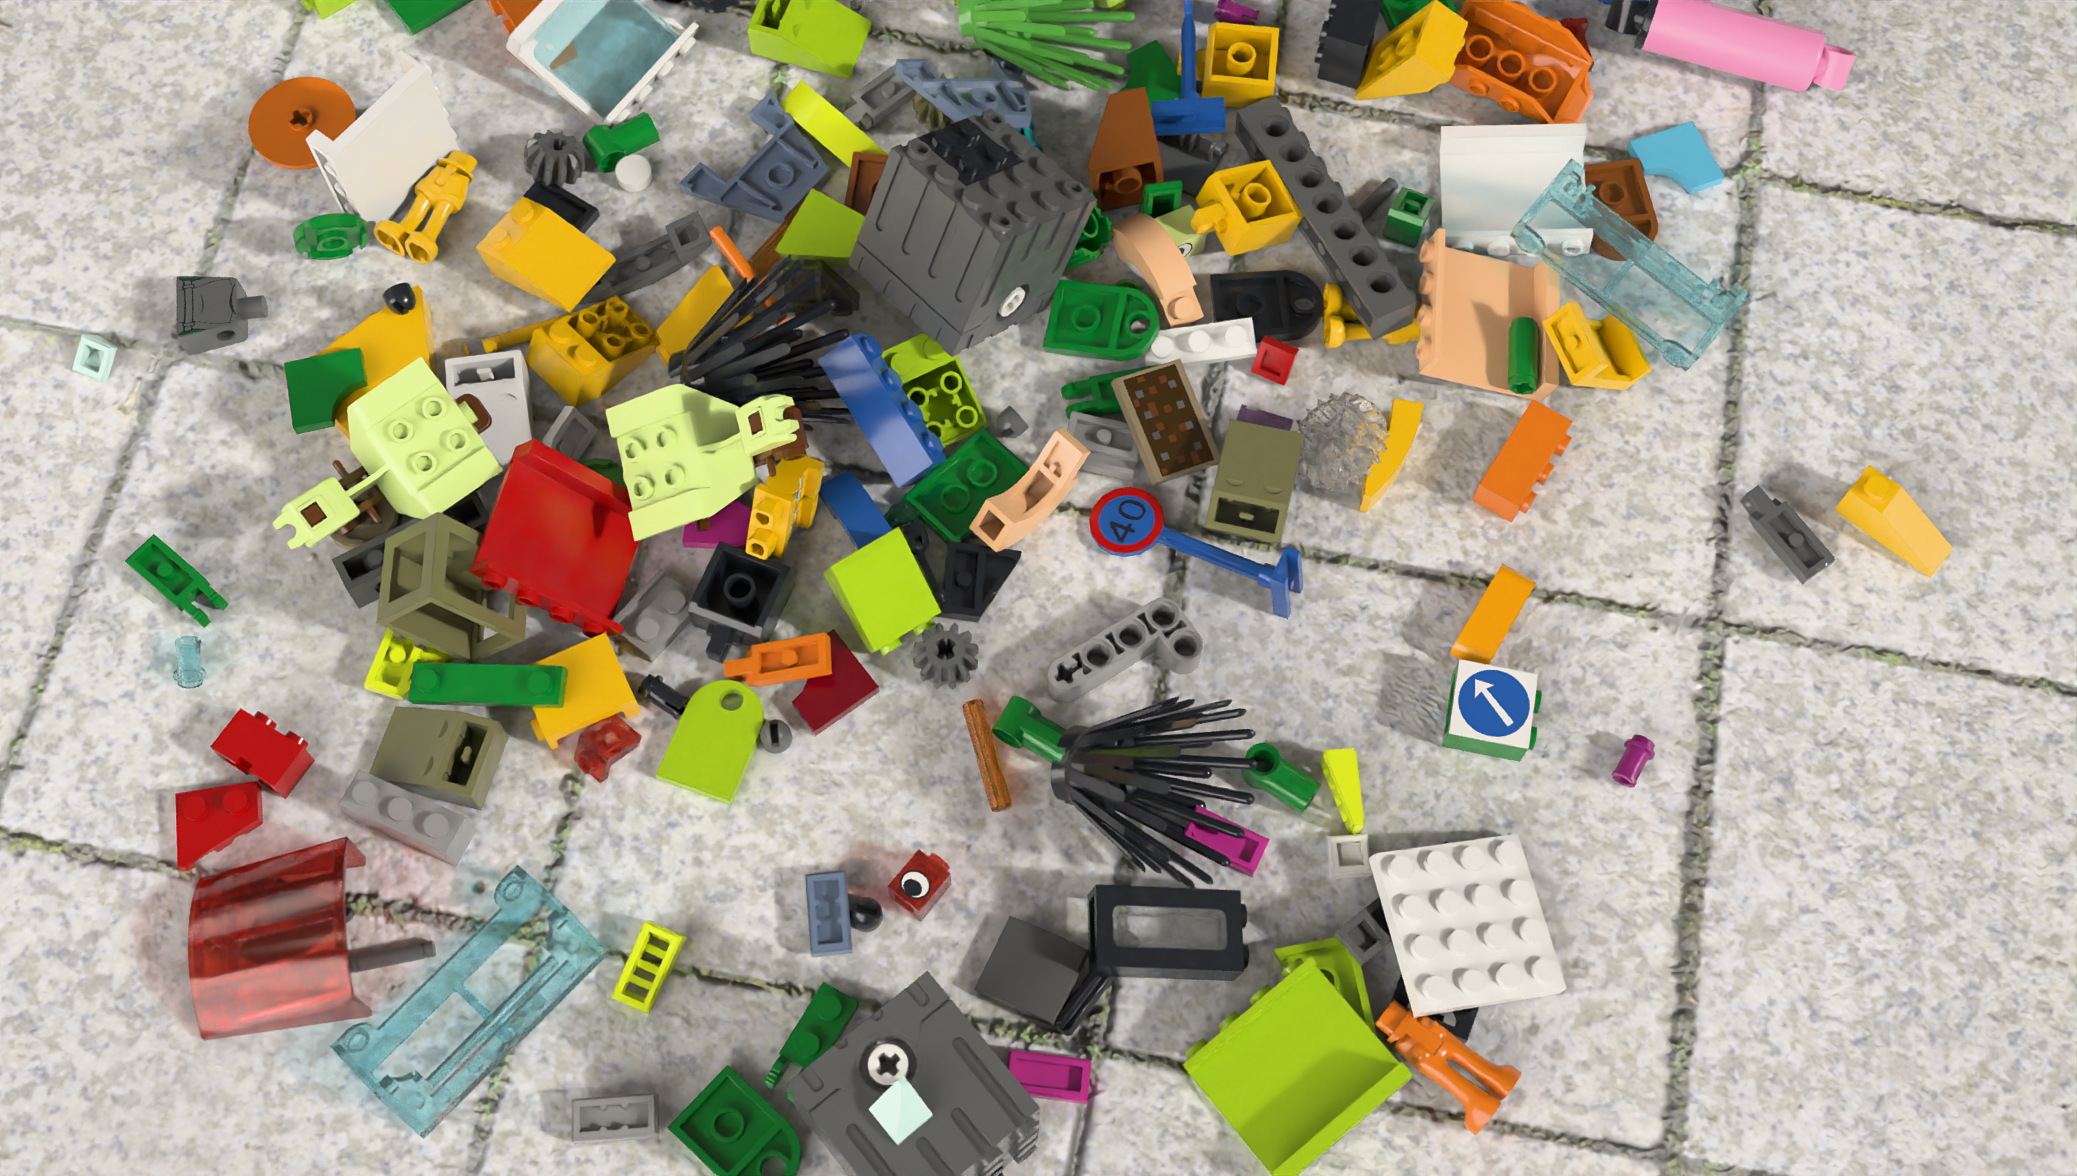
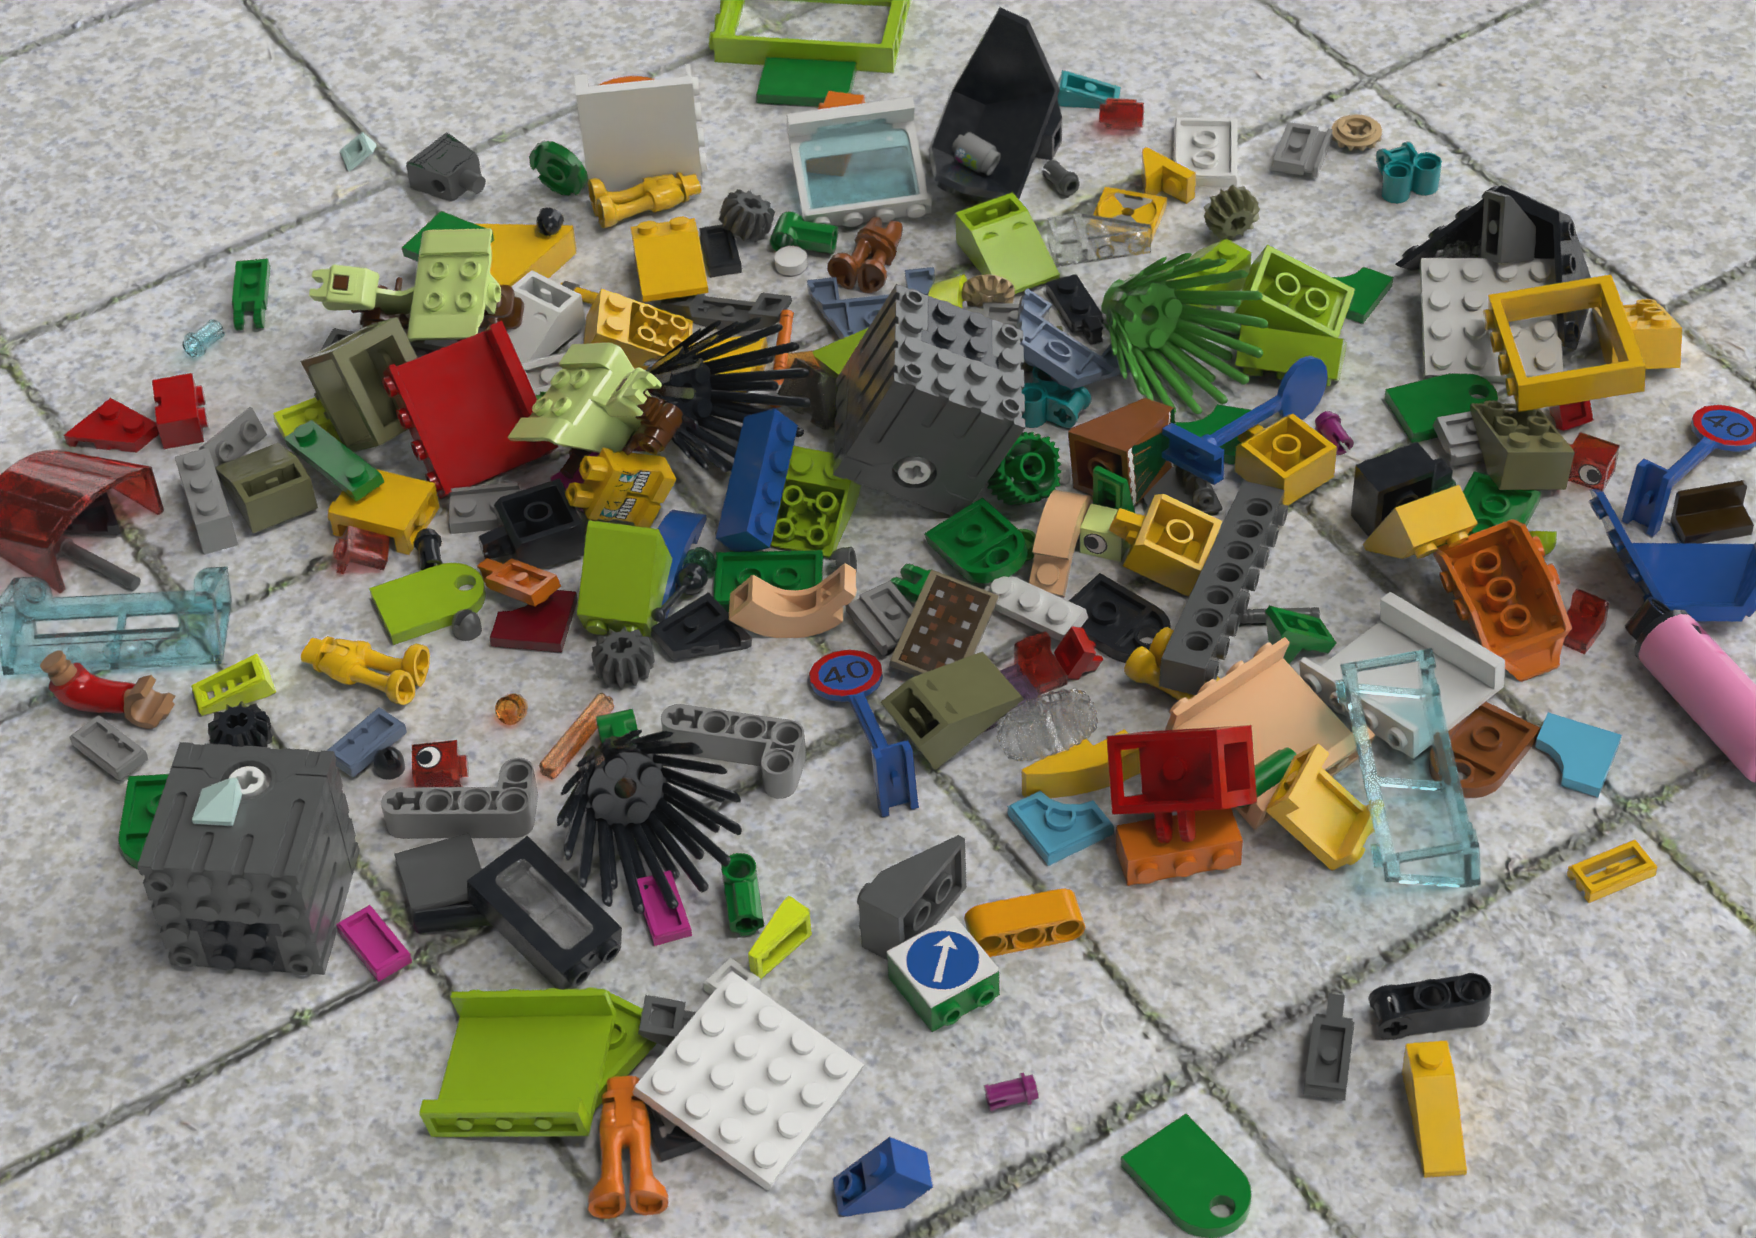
camera: 50 degrees right, 20 degrees down
(349, 724) = (235, 438): none -> light grey hinge
(535, 1085) = (86, 692): none -> piece
(701, 103) = (874, 242): none -> dark orange piece
(722, 855) = (349, 663): none -> yellow piece
(730, 1005) = (241, 727): none -> black gear
(847, 83) = (987, 289): none -> tan gear
(913, 786) = (507, 707): none -> clear orange hinge
(919, 42) = (1076, 307): none -> black hinge
(977, 901) = (454, 811): none -> light grey beam
(1256, 390) = (1039, 663): none -> clear red bracket
(1418, 685) = (911, 896): none -> dark grey slope
(1419, 517) = (1059, 828): none -> medium azure tile
(1501, 403) = (1184, 774): none -> red piece
(1637, 913) = (883, 1179): none -> blue slope
(1787, 259) = (1617, 875): none -> yellow tile
(1800, 460) = (1431, 1005): none -> black piece
(1807, 715) = (1189, 1177): none -> green tile

